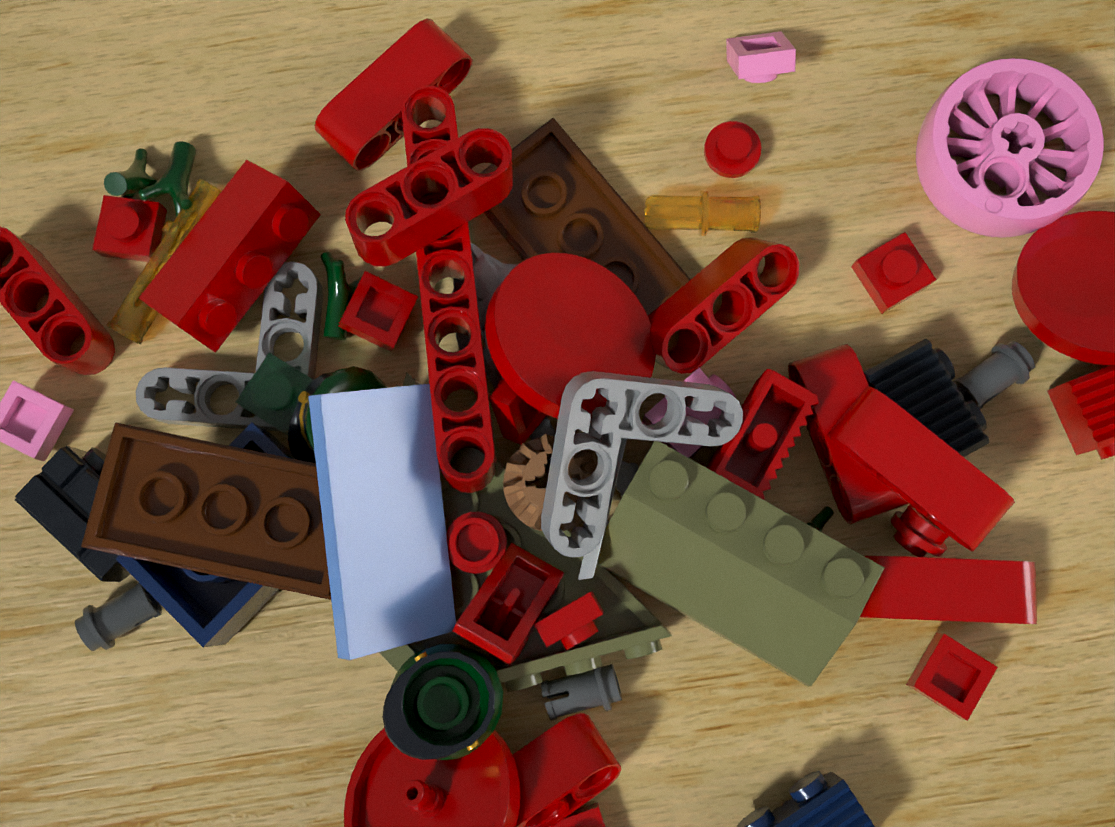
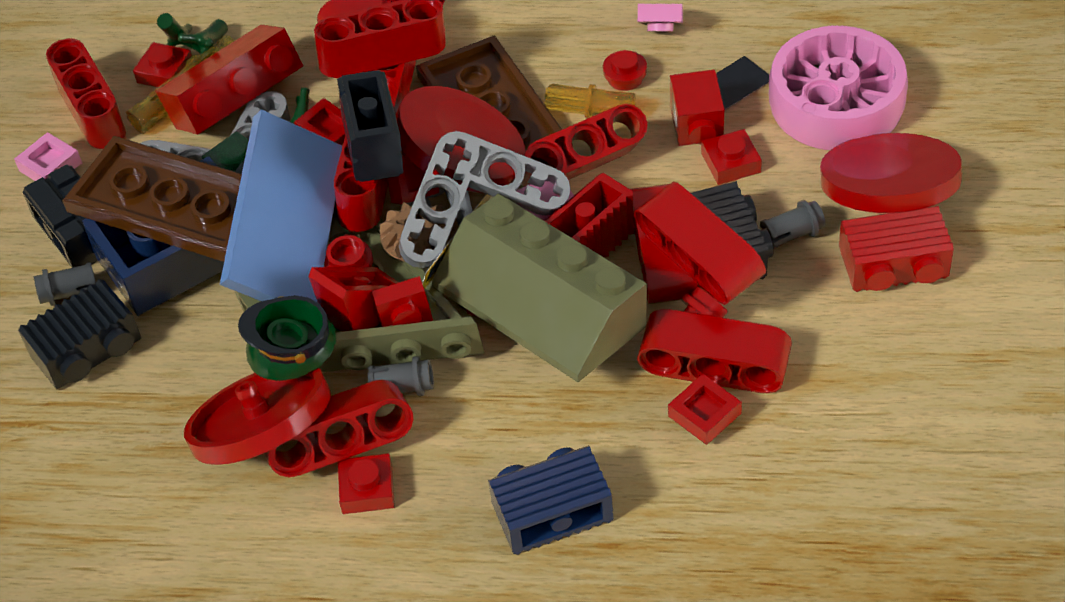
camera: 15 degrees right, 30 degrees down
(164, 701) = (80, 334): none -> black brick
(472, 384) = (370, 126): none -> black brick
(844, 211) = (696, 106): none -> red brick
(858, 156) = (740, 80): none -> black sticker

